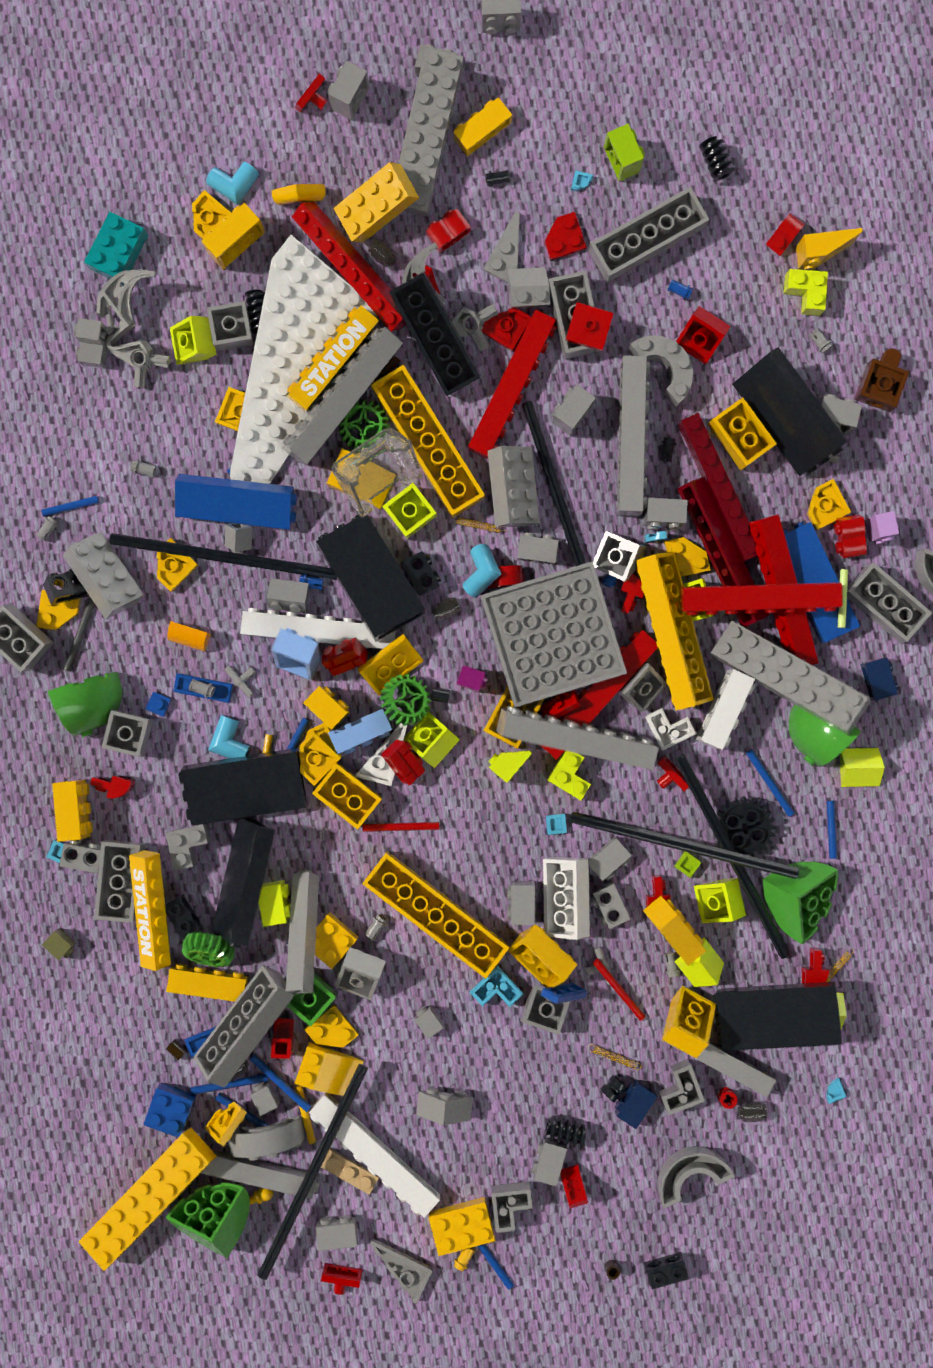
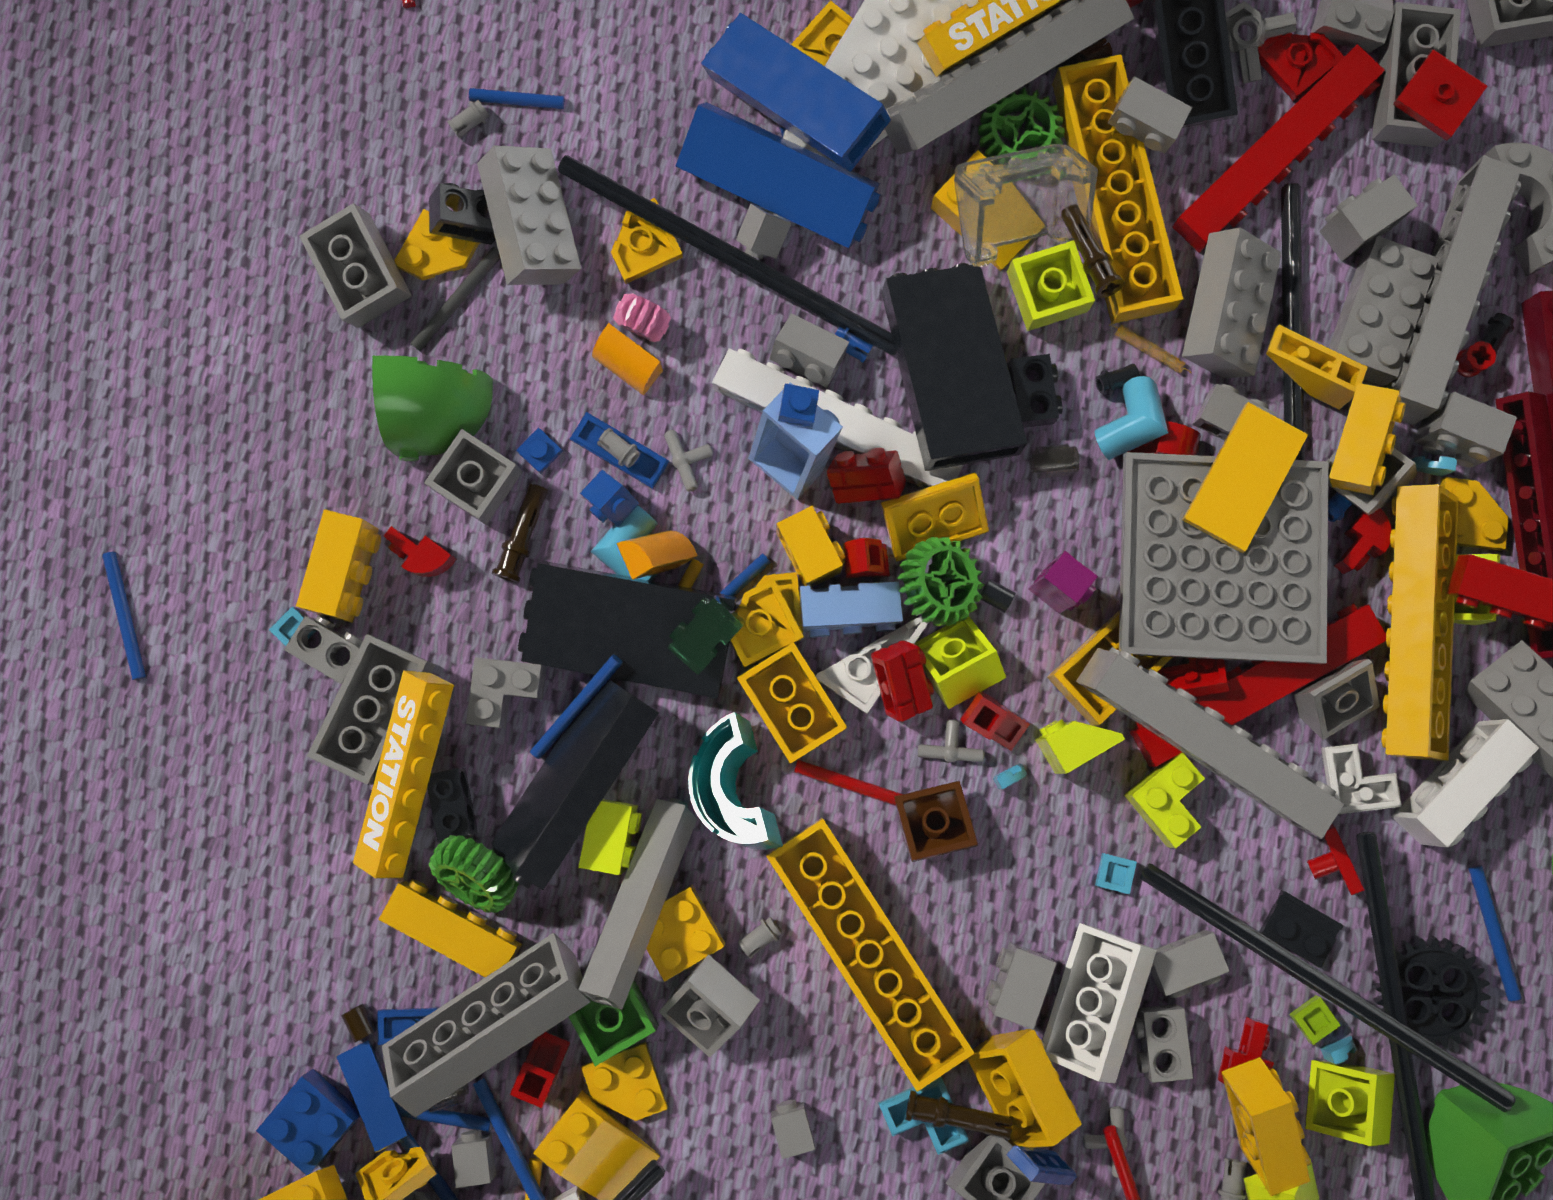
camera: 20 degrees right, 5 degrees down
(59, 944) = (235, 779): olive brick -> none
(142, 468) = (651, 79): light grey pin -> none
(165, 764) = (516, 548): none -> dark brown pin
(188, 610) = (642, 317): none -> bright pink gear
(198, 1085) = (372, 1096): none -> blue tile
(207, 718) = (609, 499): none -> blue brick
(227, 451) = (796, 91): none -> blue brick
(230, 840) = (576, 706): none -> blue bar
(243, 739) = (656, 553): none -> light orange brick
(287, 771) = (697, 641): none -> clear green brick
(289, 640) = (798, 405): none -> blue plate
(321, 856) = (714, 786): none -> teal brick
(360, 702) = (866, 558): none -> red brick
(428, 491) = (1096, 262): none -> dark brown pin
(430, 398) = (1149, 115): none -> light grey brick
(444, 790) = (951, 751): none -> light grey piece
(447, 832) = (935, 821): none -> reddish brown slope
(461, 765) = (994, 721): none -> red brick
(462, 552) = (1110, 381): none -> black pin
(481, 792) = (1008, 776): none -> medium azure tile
(503, 984) = (942, 1113): none -> dark brown pin
(549, 587) = (1245, 477): none -> yellow tile
(571, 506) = (1315, 367): none -> yellow slope
(598, 459) = (1383, 307): none -> light grey brick
(609, 540) = (1367, 439): none -> yellow brick
(663, 464) = (1475, 360): none -> red bush
(665, 818) = (1301, 929): none -> black plate
(703, 878) = (1337, 1051): none -> medium azure tile

